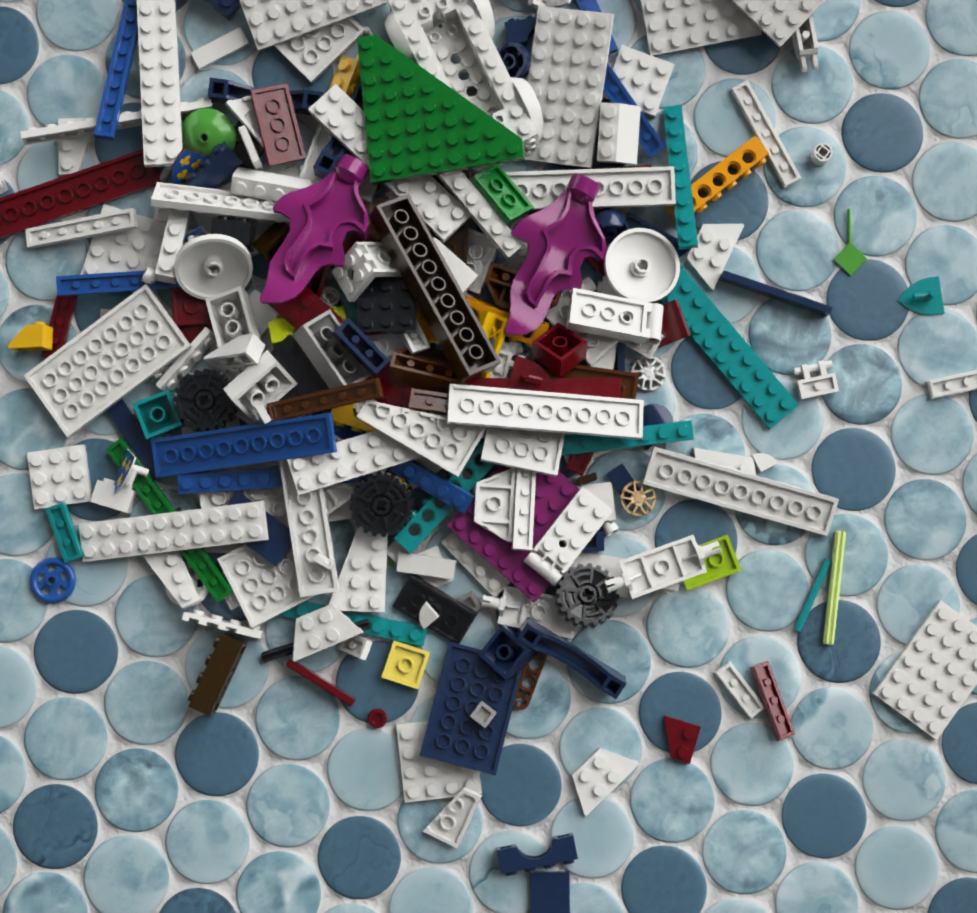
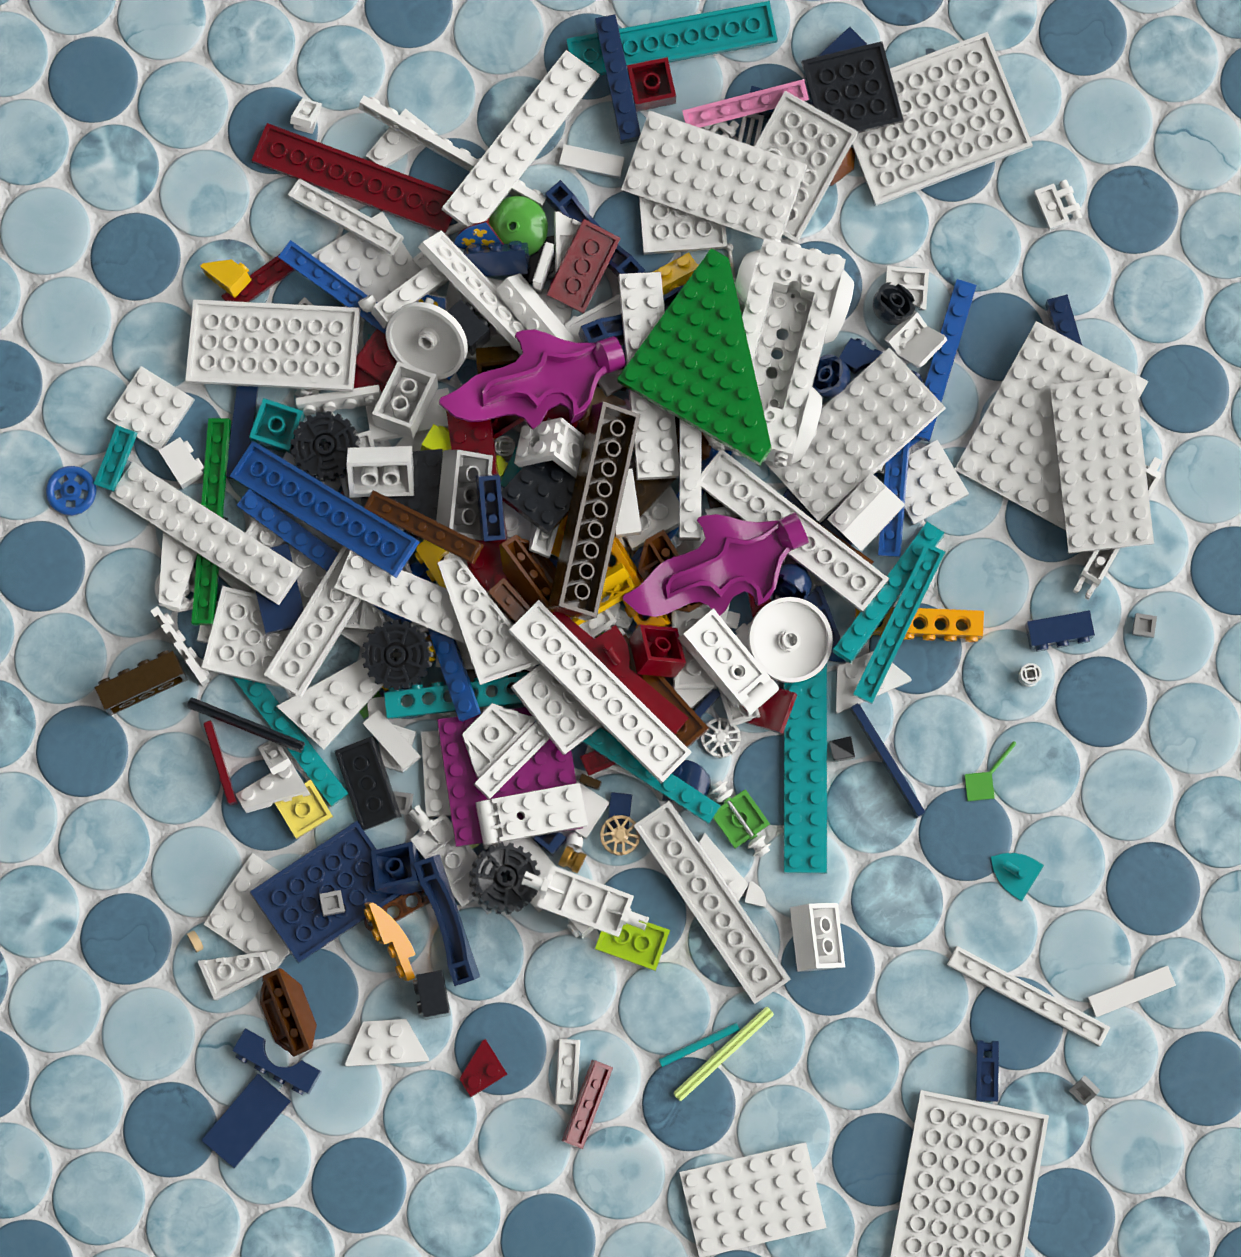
camera: 40 degrees right, 5 degrees down
(118, 73) = (486, 113): blue plate -> none
(128, 471) = (211, 451): shield -> none
(237, 353) = (385, 428): white slope -> none
(260, 412) = (361, 492): white plate -> none
(322, 630) = (257, 719): white wing -> none
(324, 561) = (309, 661): white tile -> none
(373, 669) = (272, 789): none -> white wing
(377, 718) = (241, 834): dark red tile -> none
(409, 819) = (195, 941): none -> tan tile
(427, 615) = (357, 782): white tile -> none
(502, 193) = (720, 480): green plate -> none
(516, 814) = (287, 1012): none -> reddish brown wedge
(539, 700) = (388, 931): none -> light orange slope
(606, 717) = (432, 994): none -> black brick
(623, 539) = (572, 859): none -> pearl gold wheel
(706, 192) = (899, 623): none -> teal plate
(710, 417) = (740, 819): none -> bright green plate
(737, 311) = (842, 749): none -> black slope
(765, 133) = (997, 618): white tile -> none
(816, 106) = (1060, 630): none -> dark blue brick
(818, 385) = (856, 869): white plate -> none
(830, 454) = (817, 937): none -> white slope
(869, 56) = (1144, 625): none -> light grey plate

